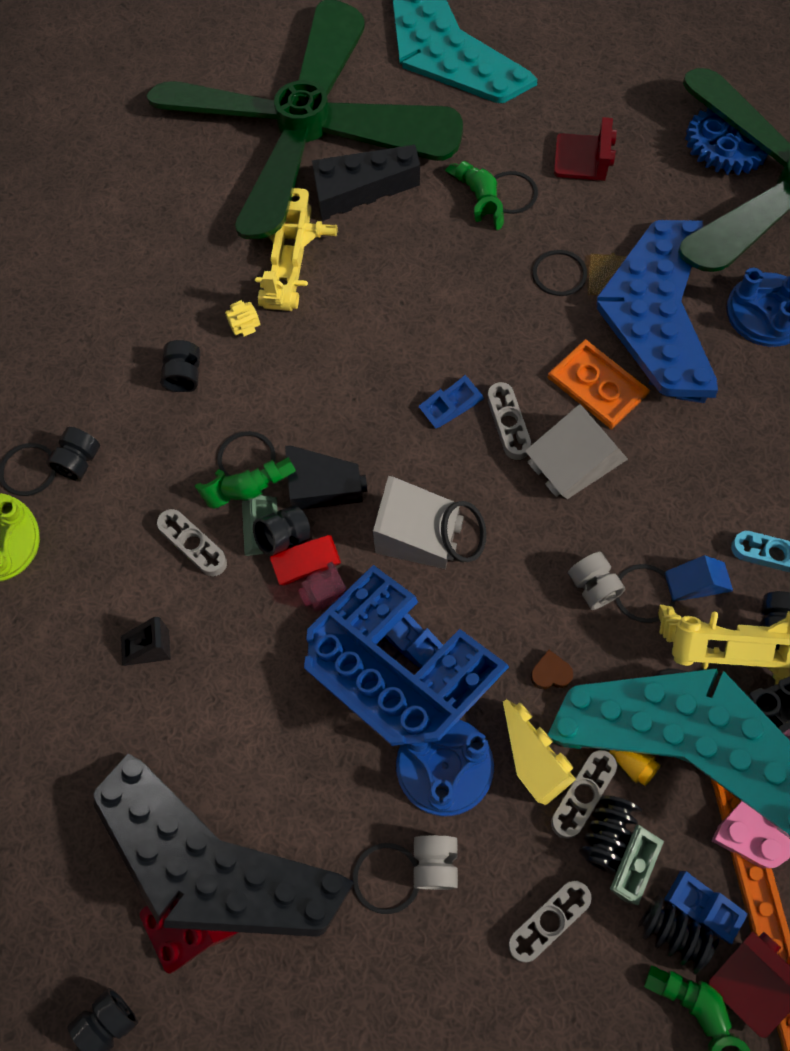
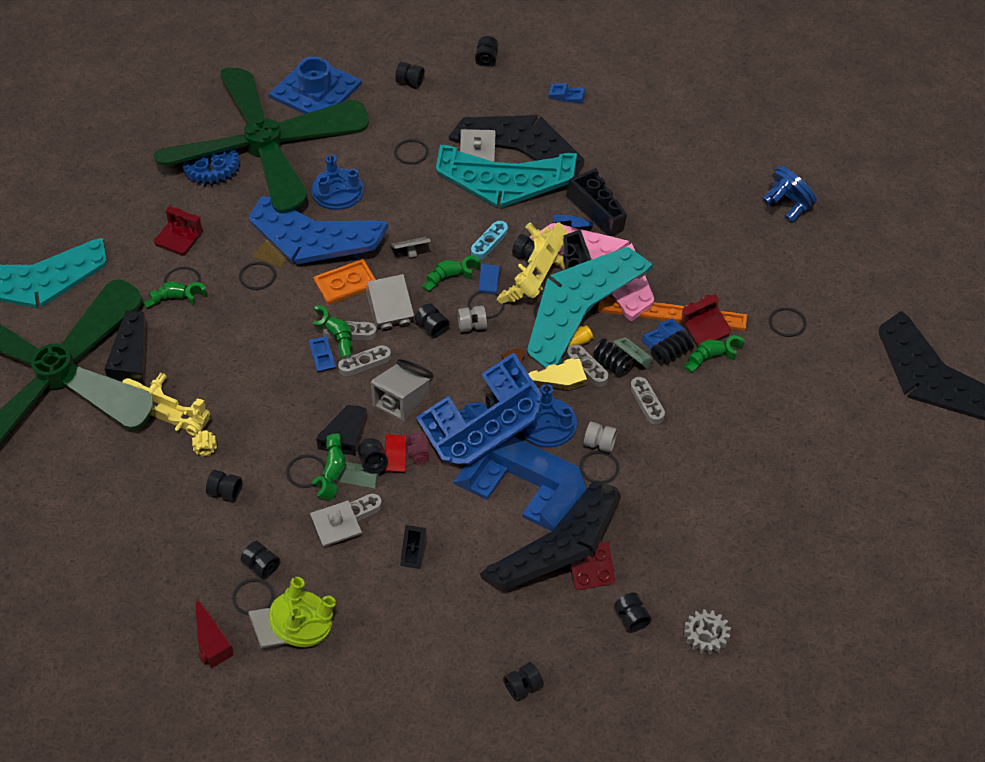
camera: 75 degrees left, 15 degrees down
(158, 525) = (335, 523): none -> light grey piece
(349, 788) = (558, 479): none -> blue slope
(461, 449) = (368, 354): none -> light grey beam
(494, 401) = (337, 327): none -> green piece
(568, 524) = (432, 320): none -> black wheel
(684, 512) = (451, 268): none -> green piece
(704, 440) = (410, 245): none -> light grey piece

